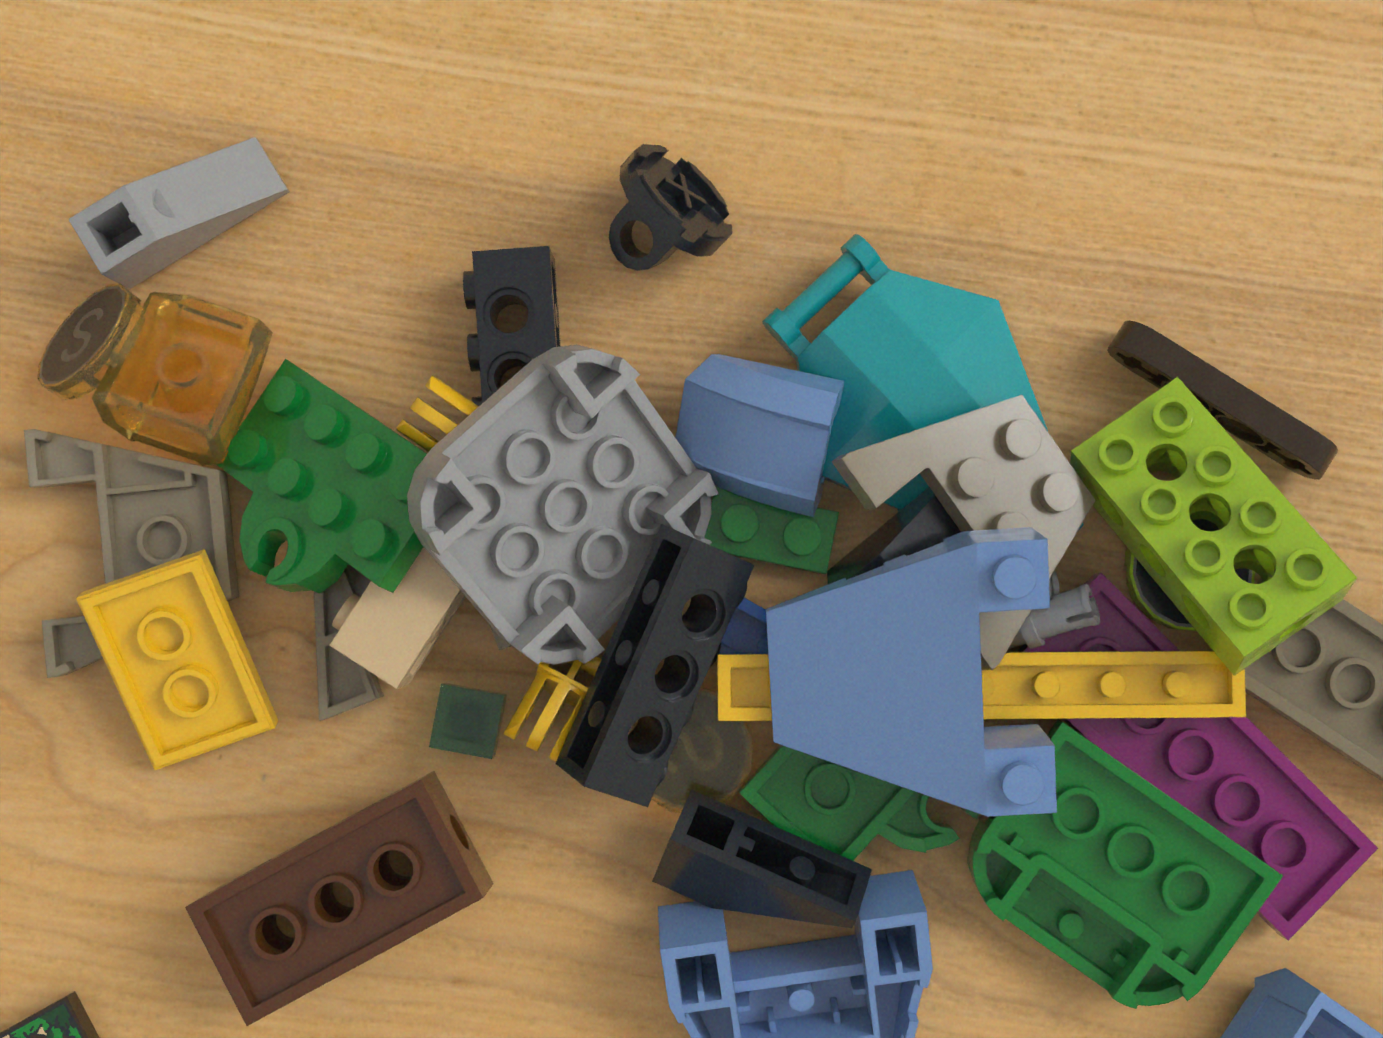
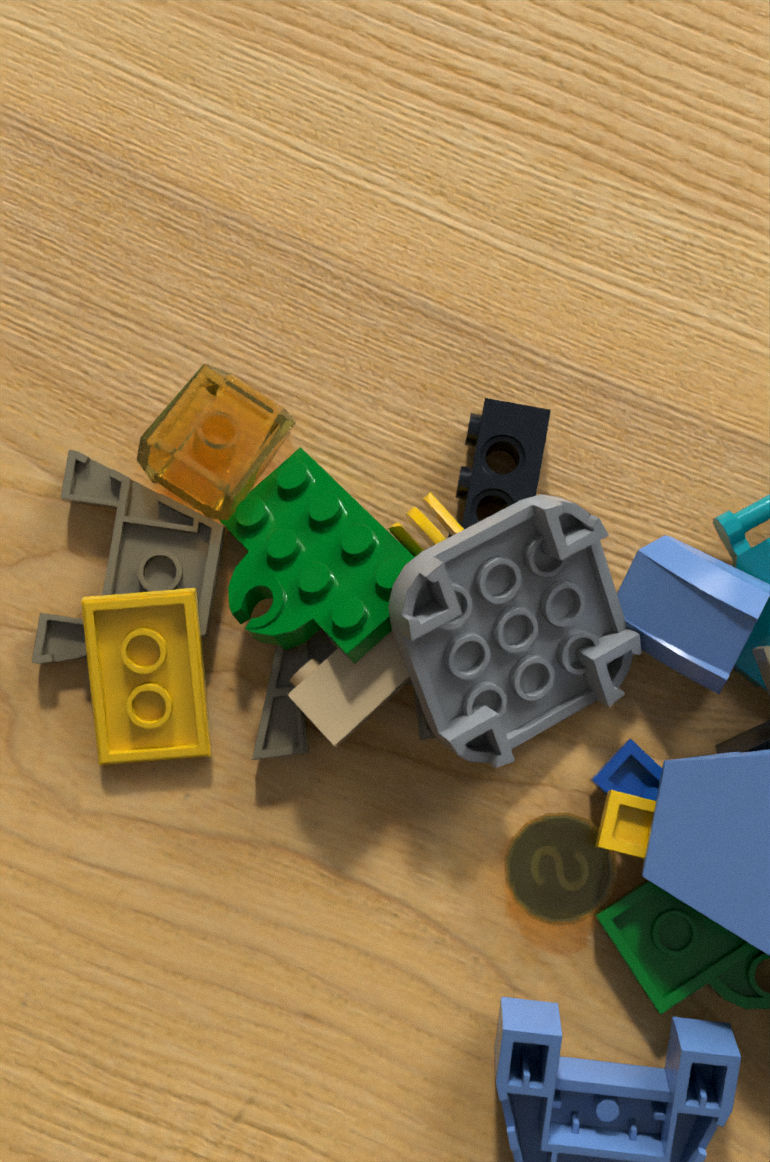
camera: 10 degrees right, 5 degrees down
(92, 335) = (145, 388): tile -> none
(176, 211) = (246, 302): light grey slope -> none
(272, 969) = (216, 951): reddish brown brick -> none
(468, 720) = (377, 792): clear green plate -> none
(562, 690) = (466, 788): yellow arm -> none
(625, 684) = (555, 784): black brick -> none
(673, 202) = (662, 402): black tile -> none
(758, 868) = (594, 981): black slope -> none
(770, 533) = (676, 700): green plate -> none

